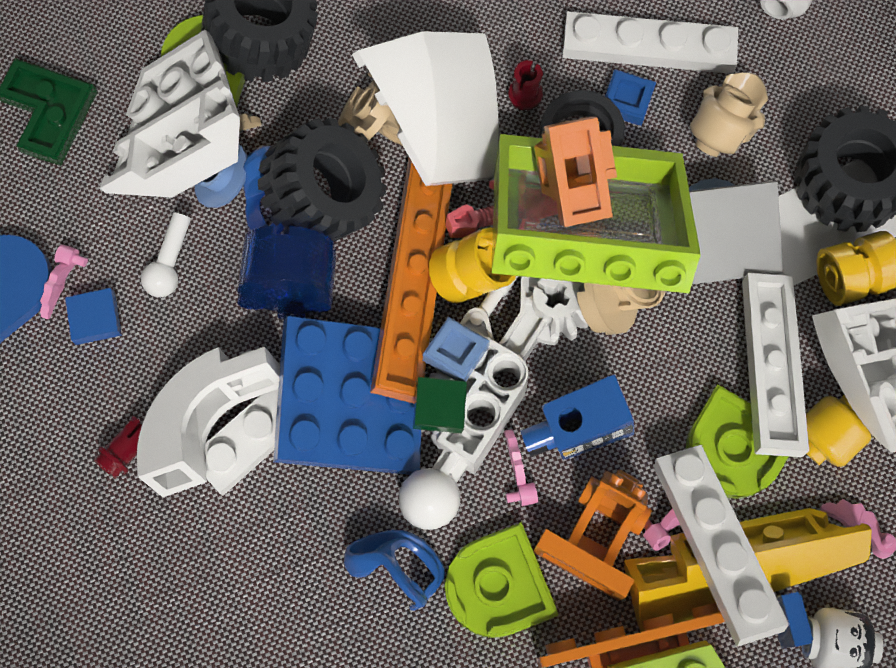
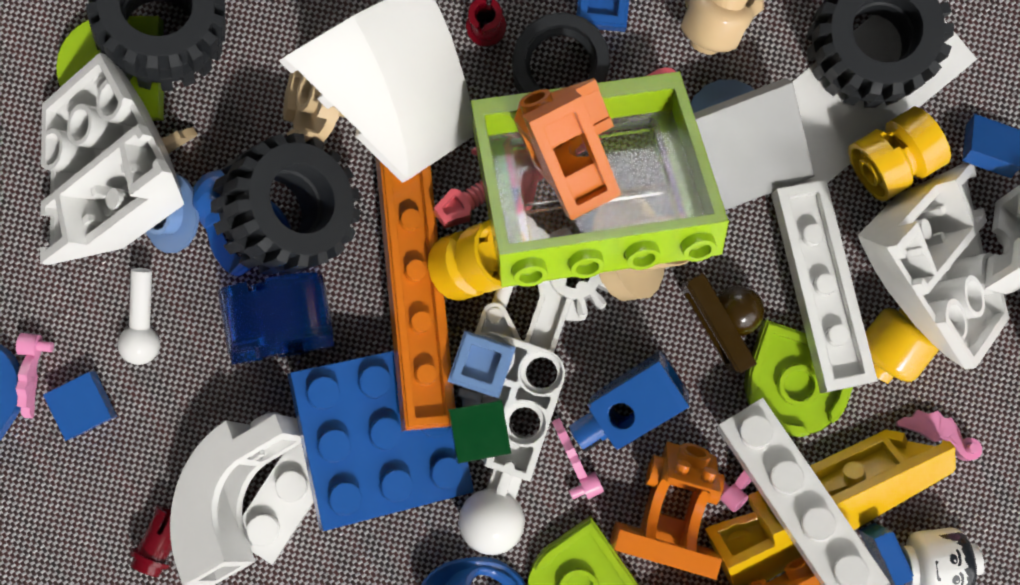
camera: 10 degrees left, 15 degrees up
(680, 372) = (726, 318): none -> dark brown tile

